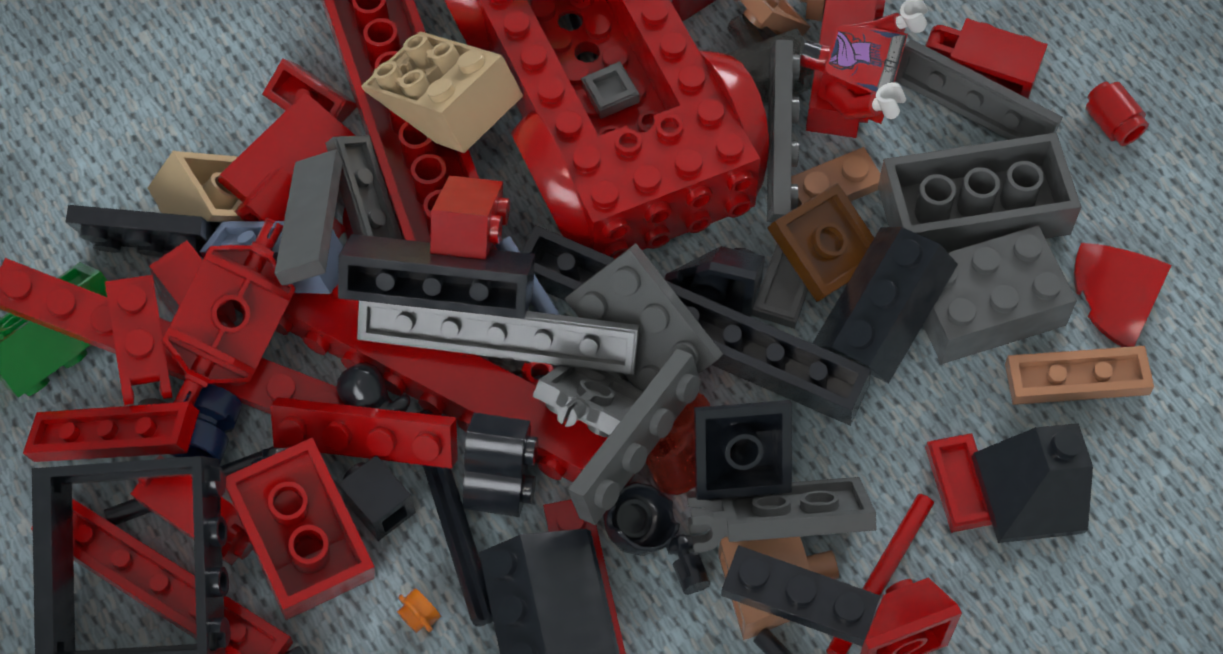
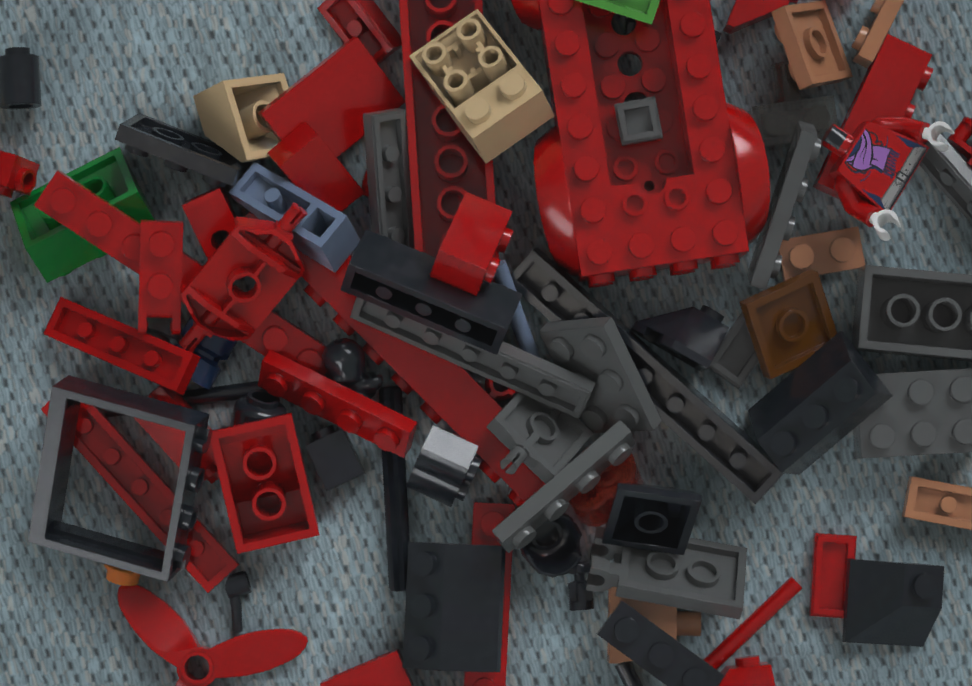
camera: 10 degrees right, 25 degrees up
(309, 218) = (332, 208): dark grey tile -> none
(417, 611) = (347, 568): orange plate -> none

